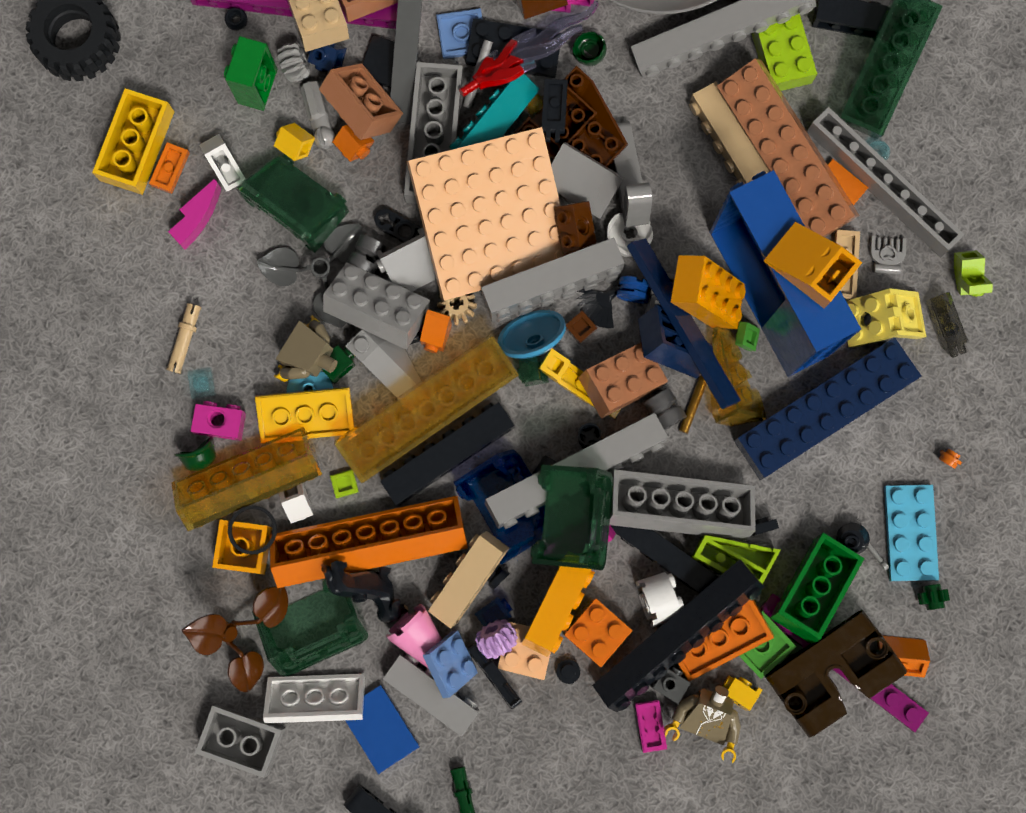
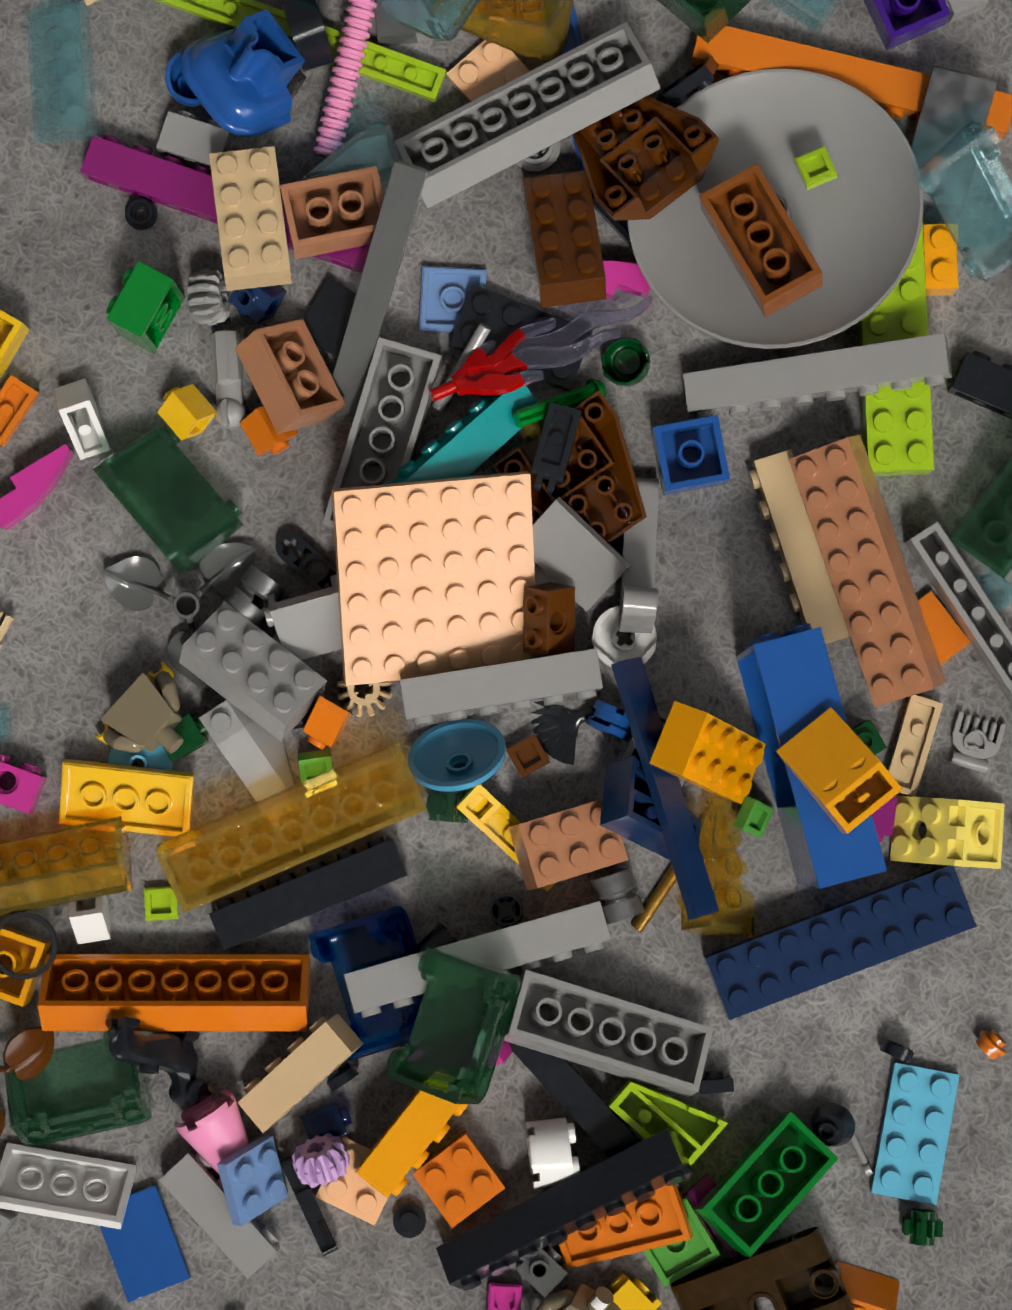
camera: 15 degrees right, 5 degrees up
(432, 363) = (314, 764): none -> bright green plate
(537, 89) = (538, 411): none -> green axle
(648, 100) = (690, 455): none -> blue brick
(885, 476) = (897, 1050): none -> black tile

